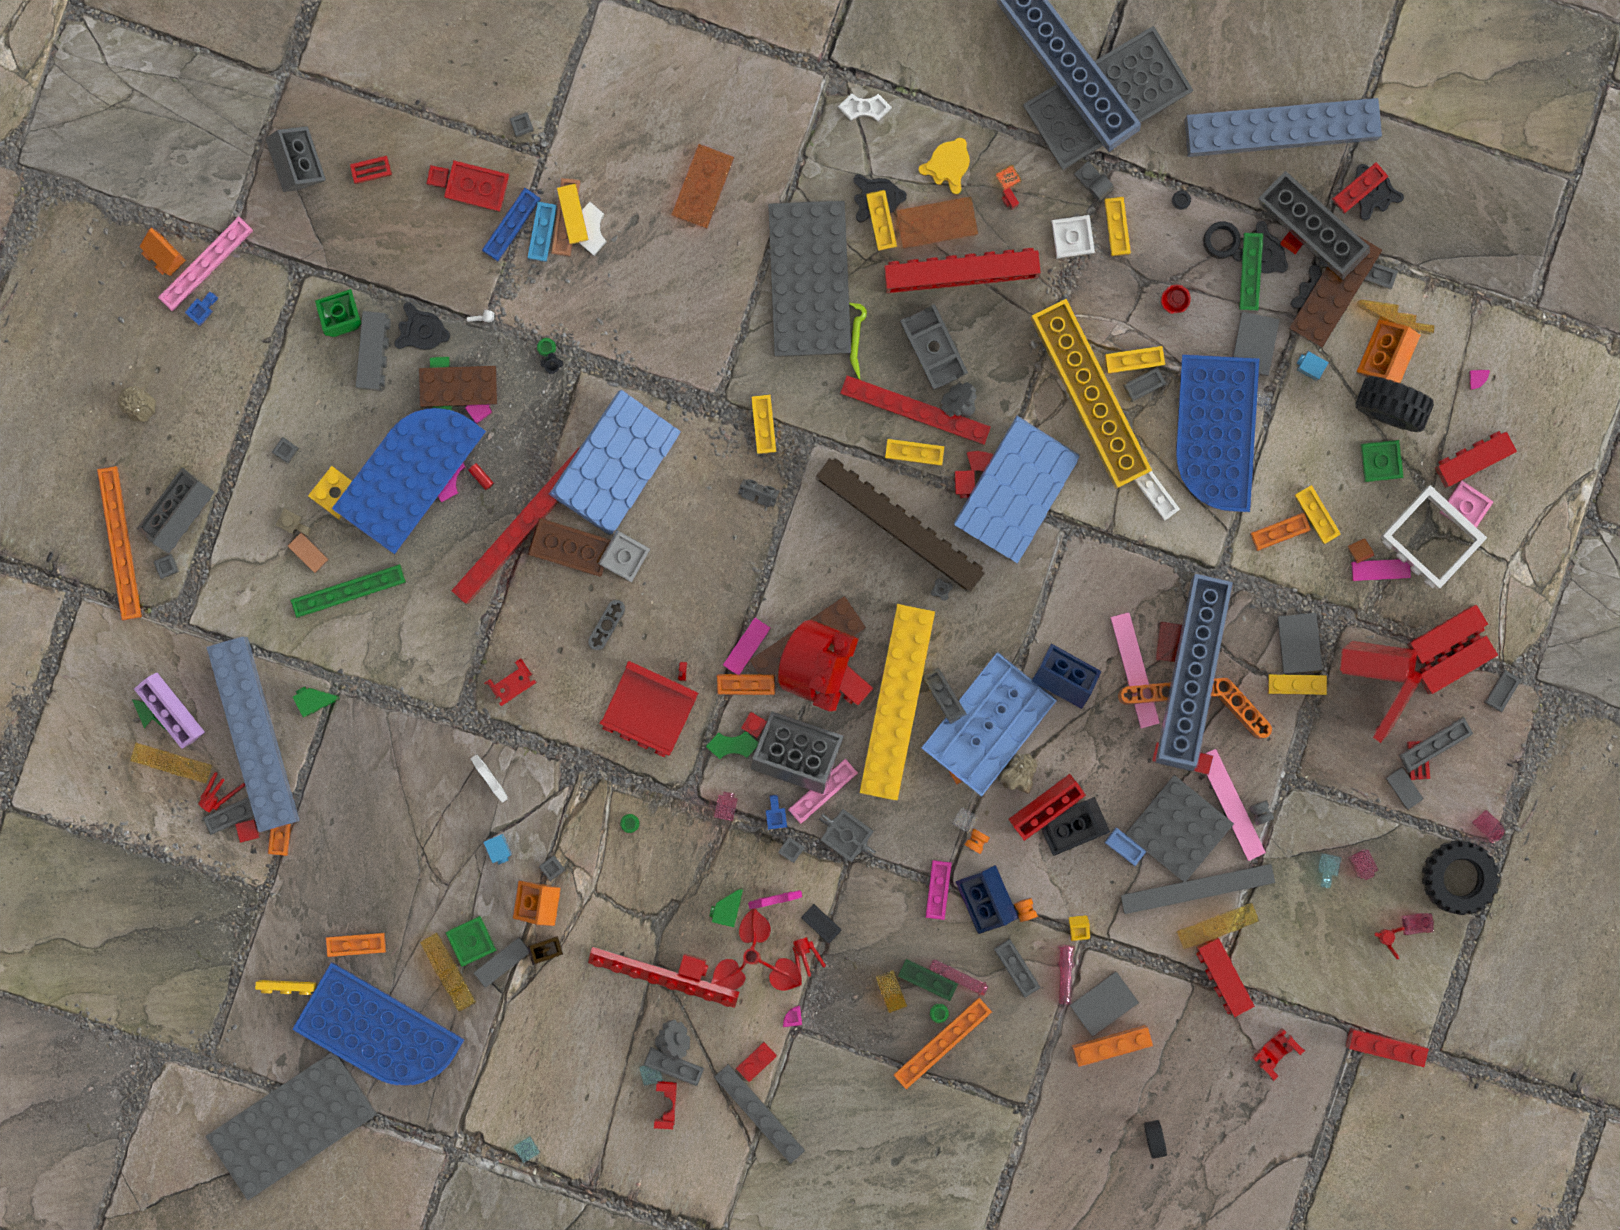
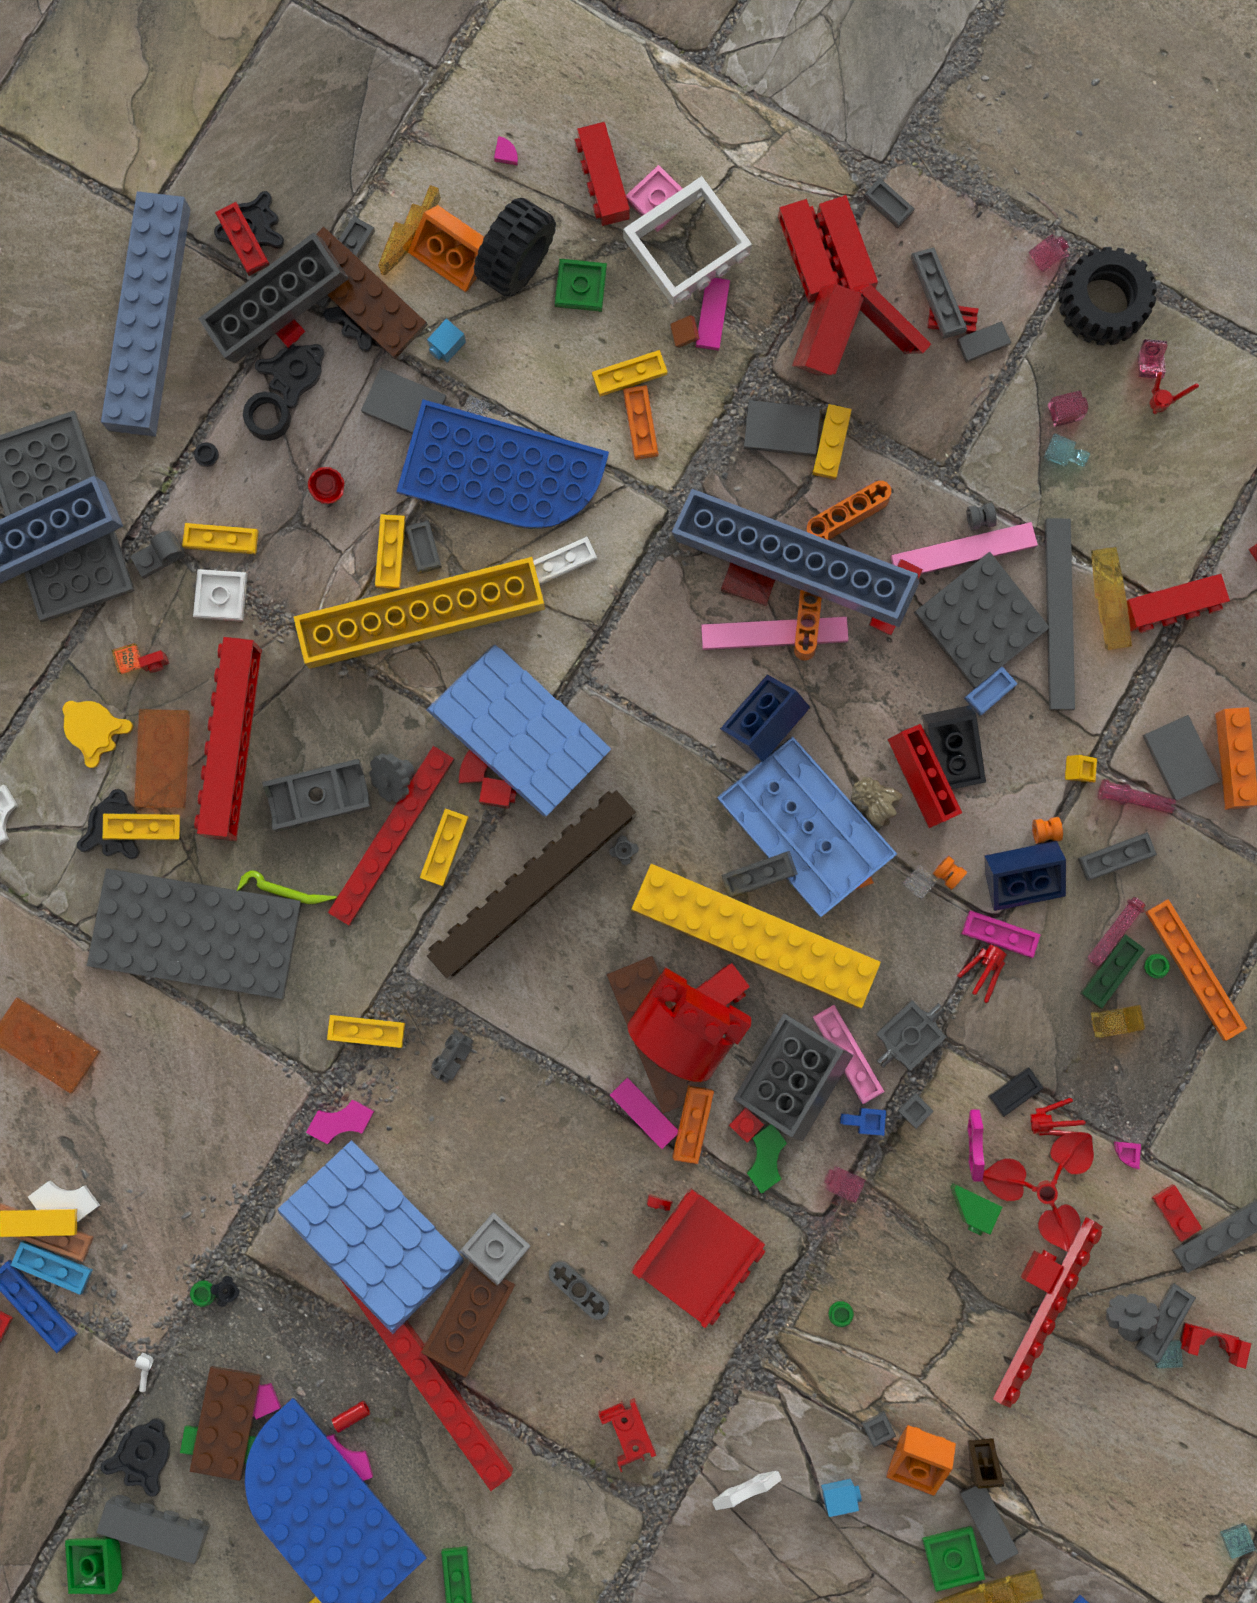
camera: 85 degrees left, 5 degrees down
(688, 412) = (351, 1118): none -> dark pink tile
(917, 886) = (992, 960): none -> red plant
(1251, 271) = (313, 388): green tile -> none

